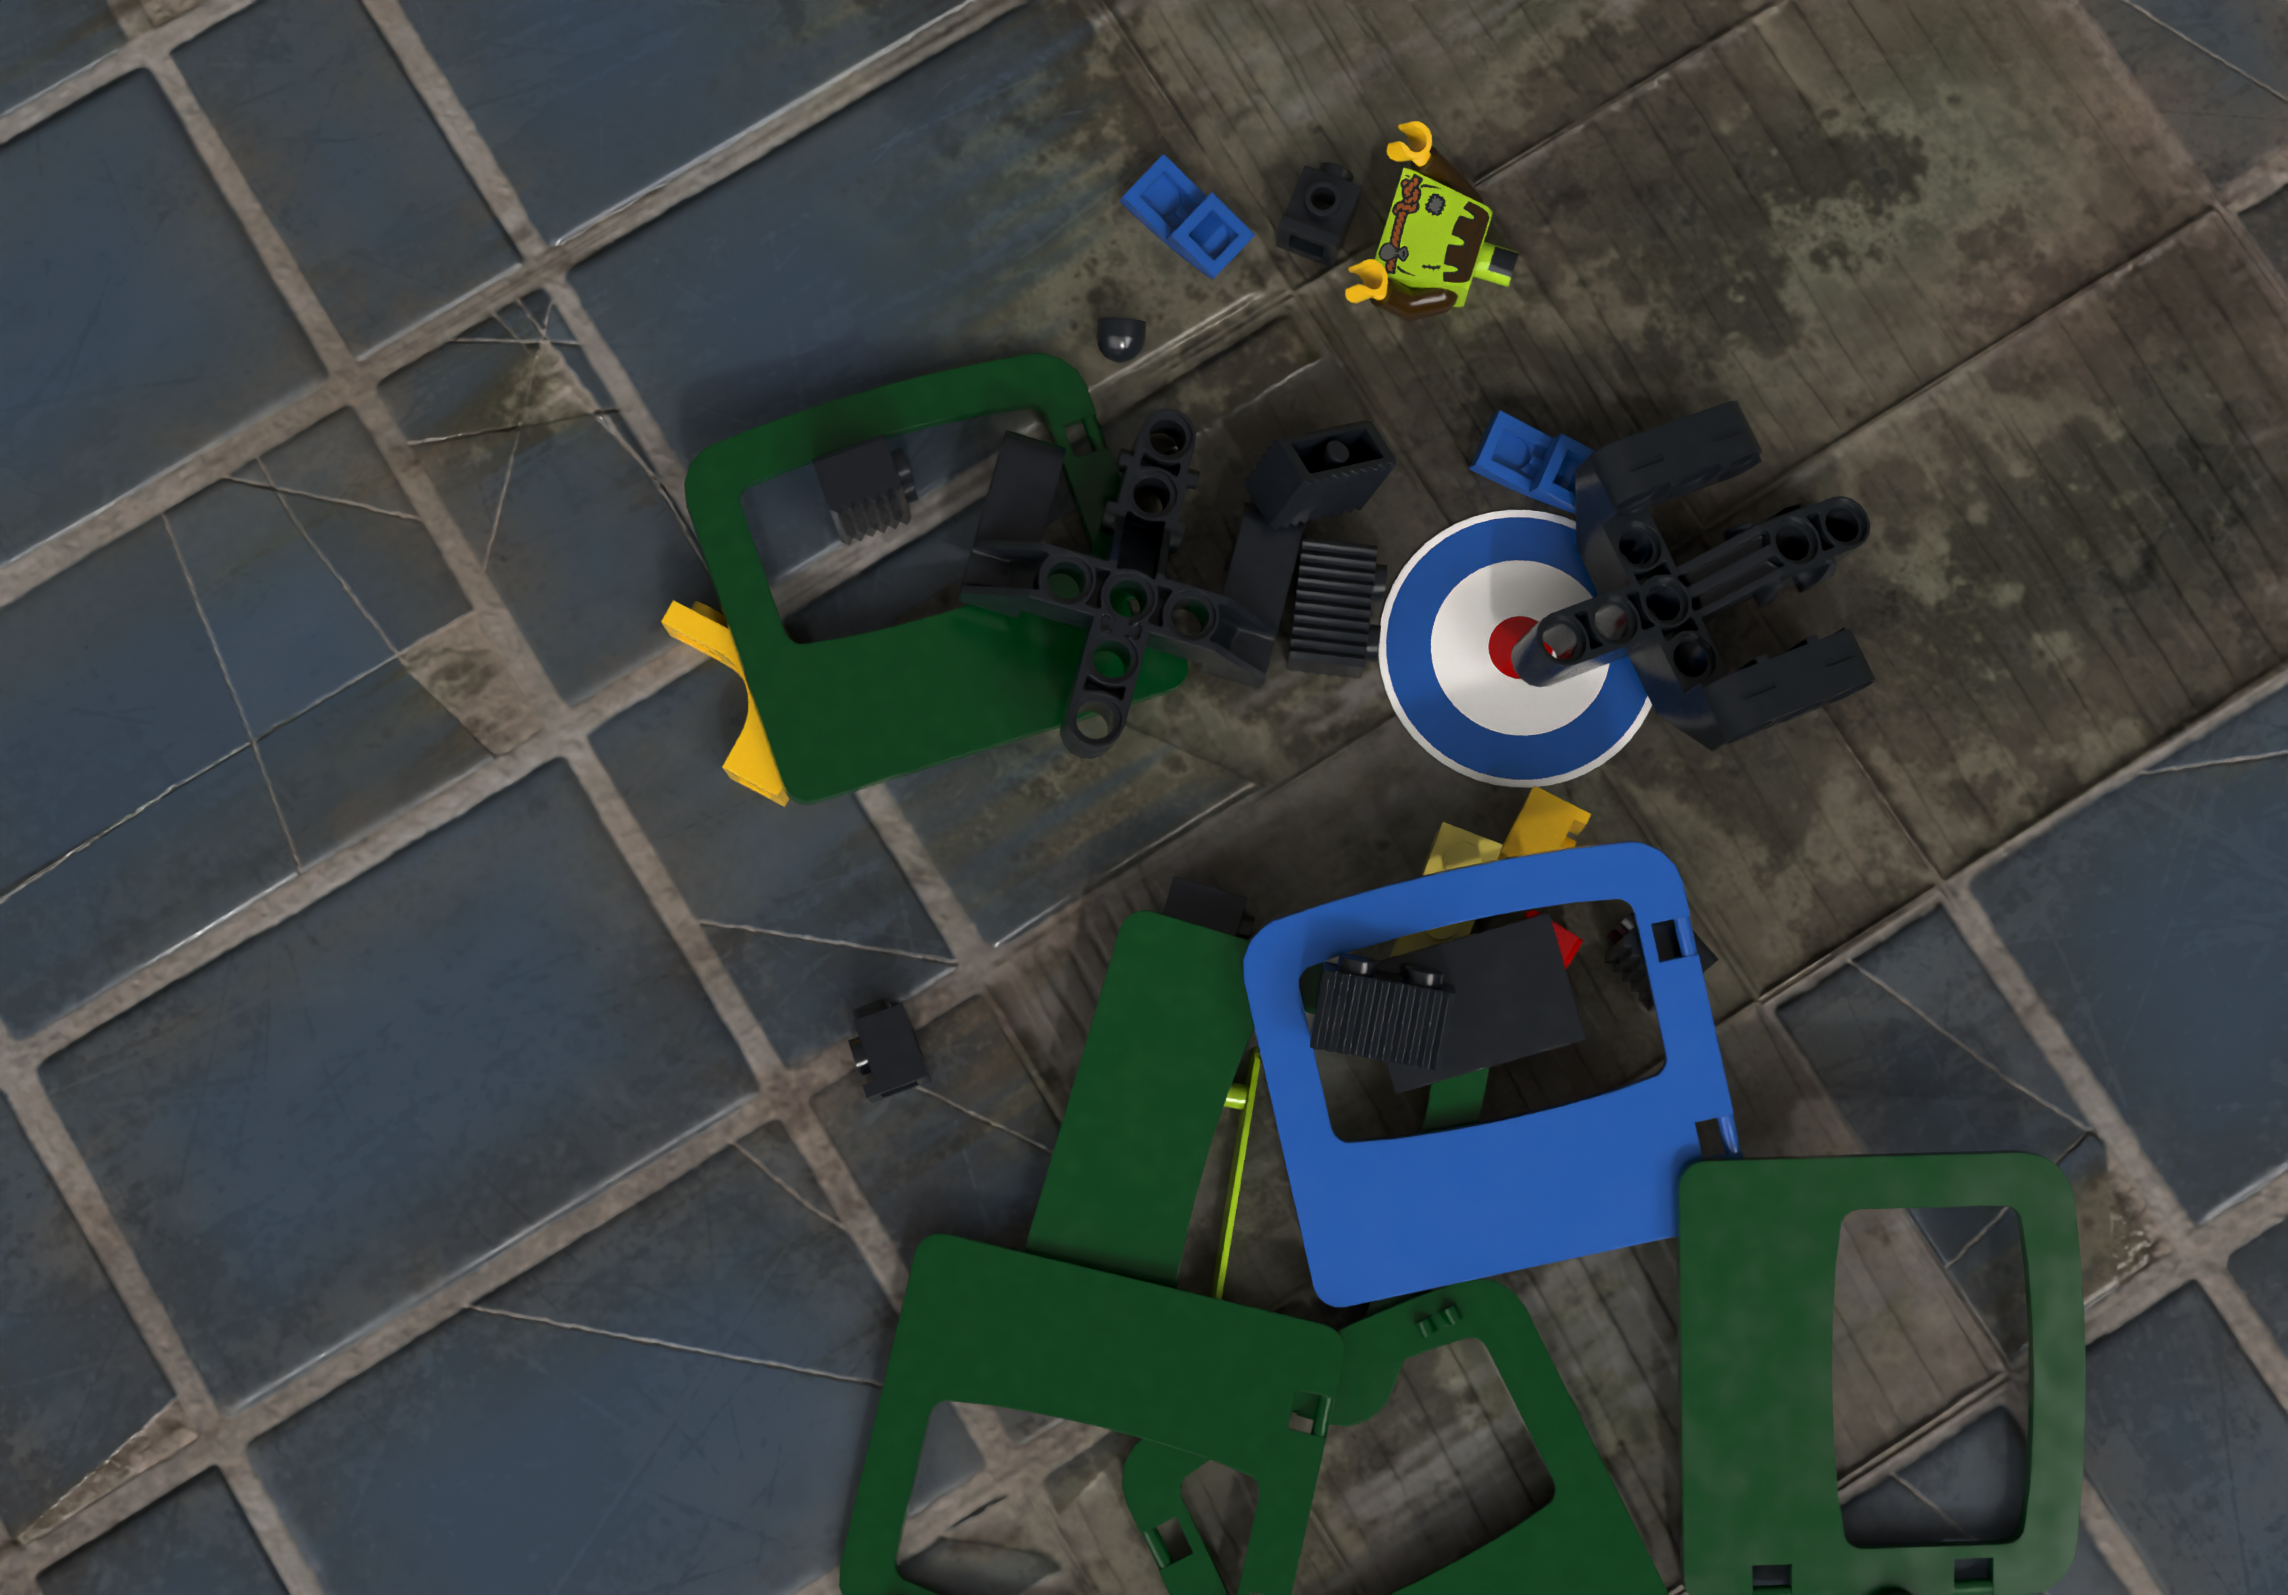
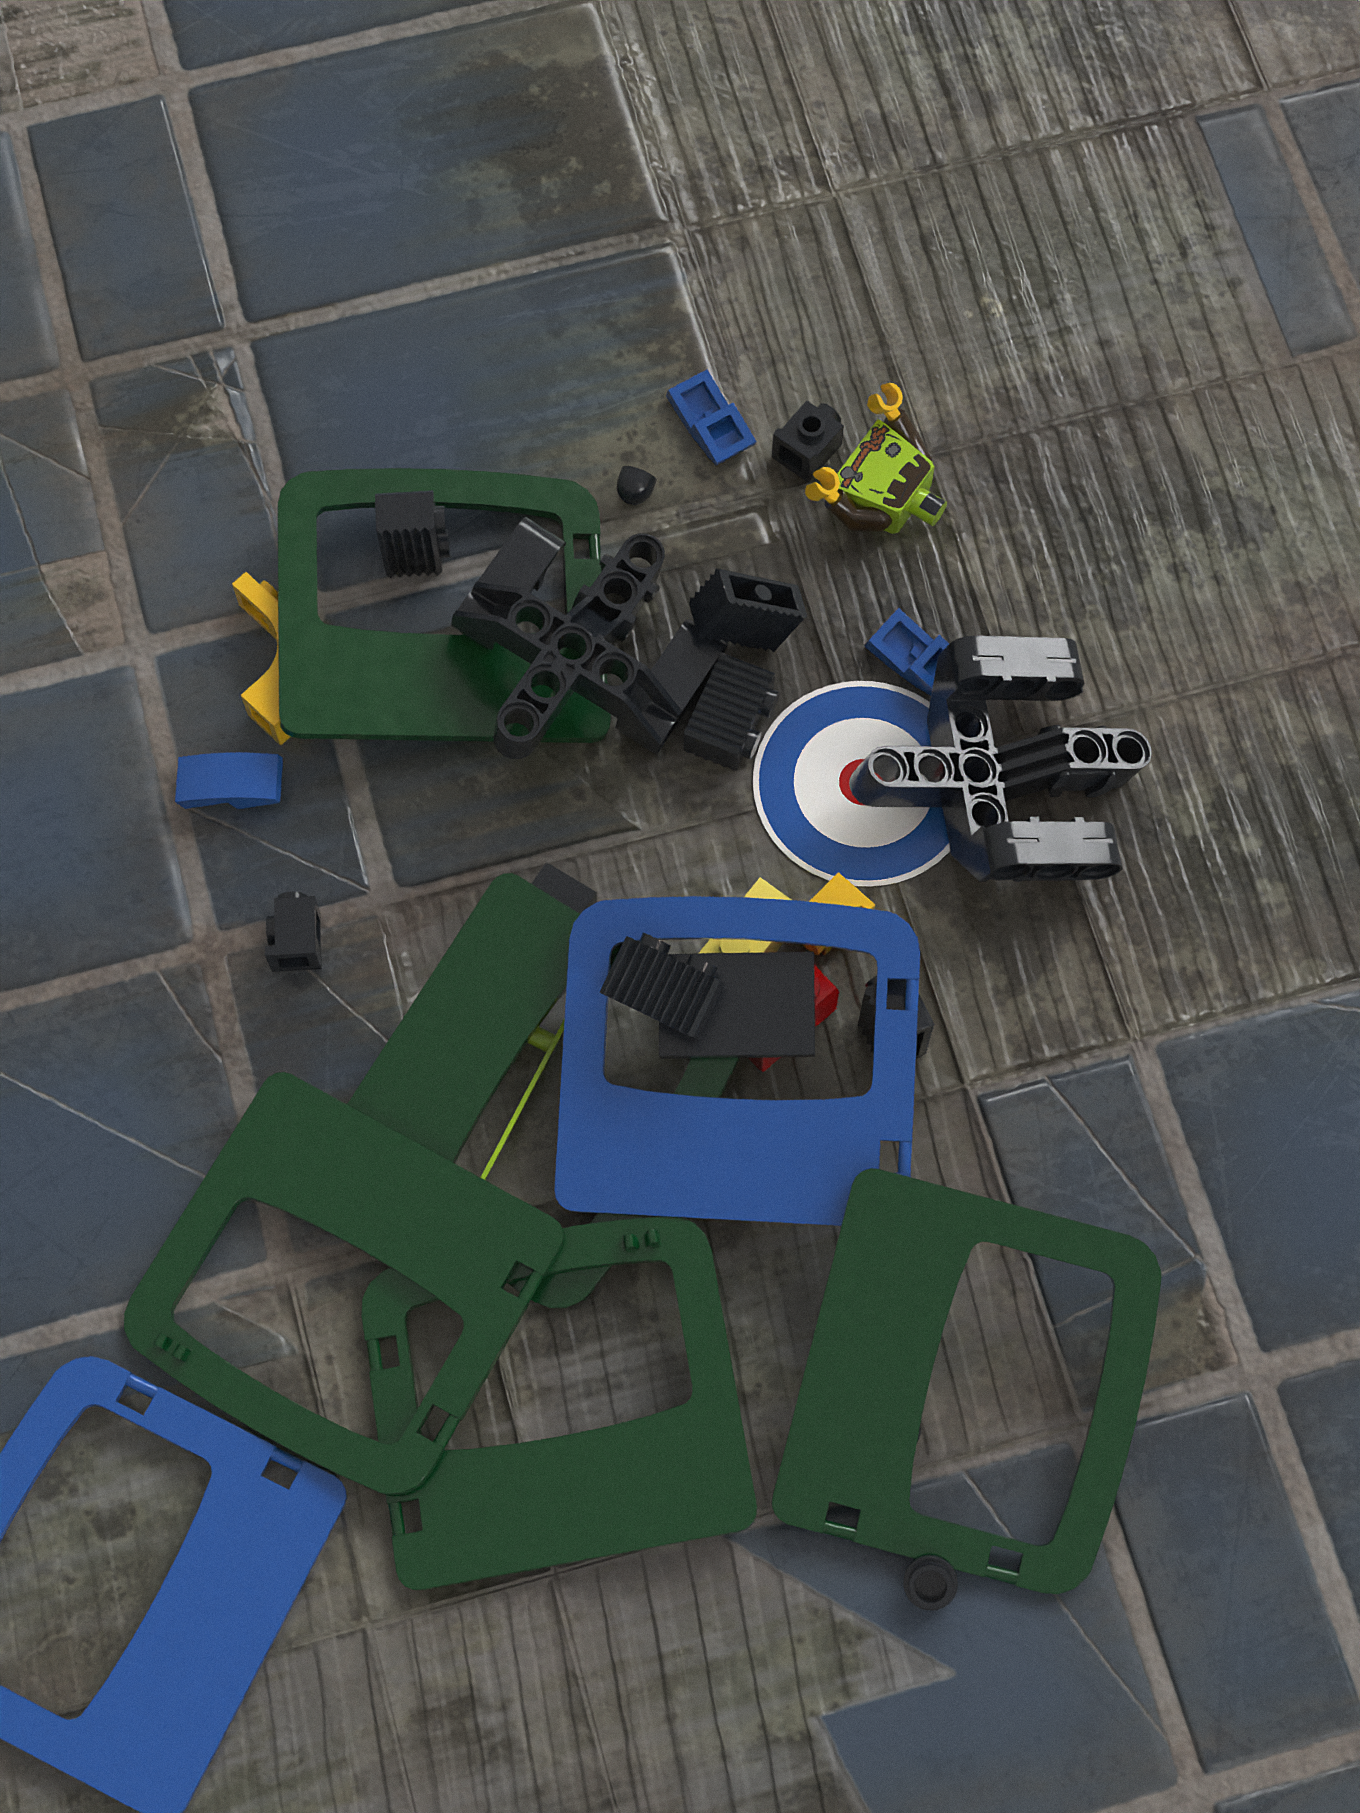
camera: 15 degrees right, 10 degrees down
(739, 874) = (229, 778): none -> blue slope

